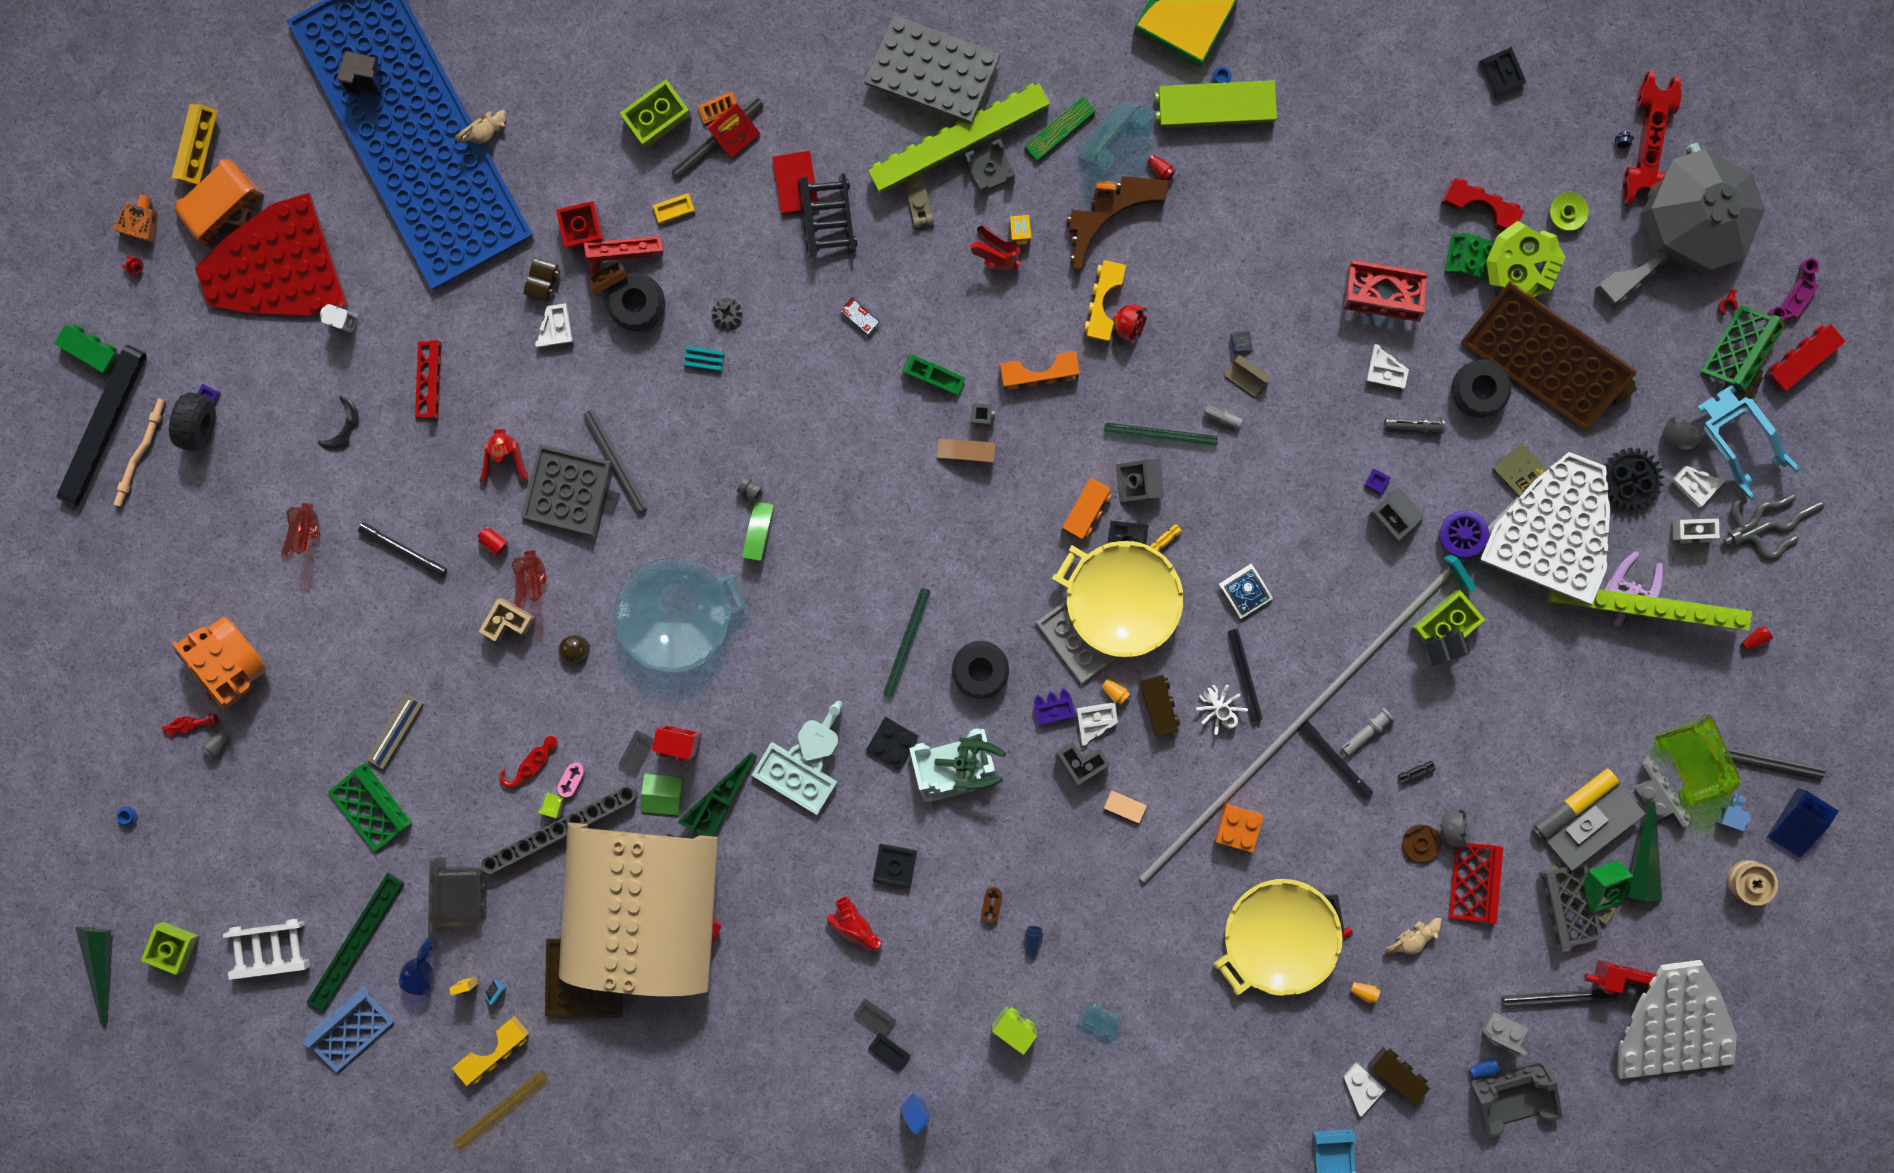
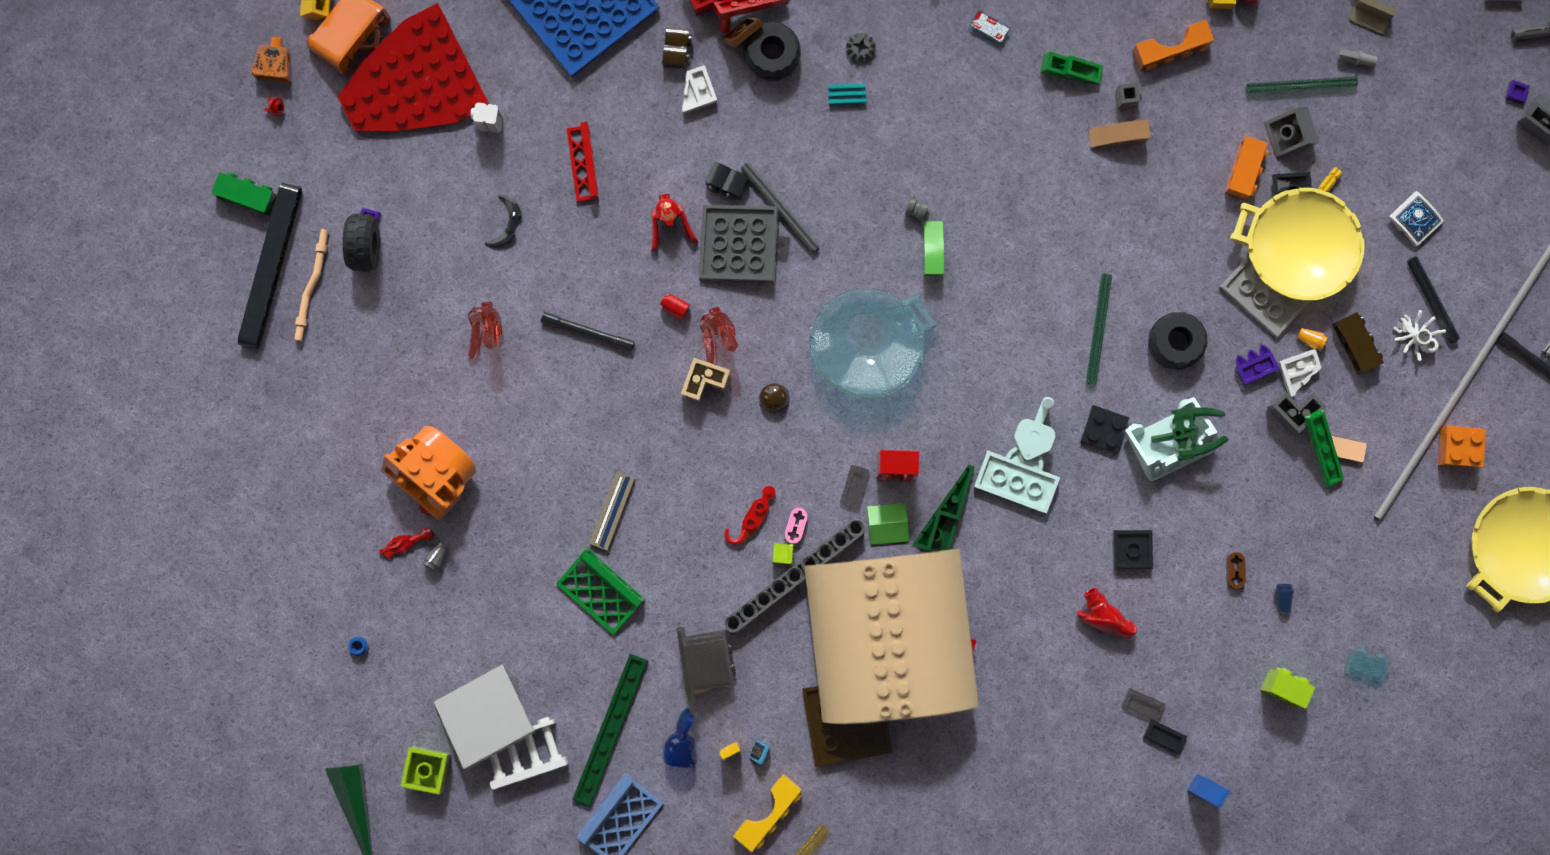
camera: 10 degrees left, 5 degrees down
(234, 908) = (484, 717): none -> tile
(566, 424) = (727, 181): none -> black brick
(1101, 803) = (1324, 448): none -> green tile

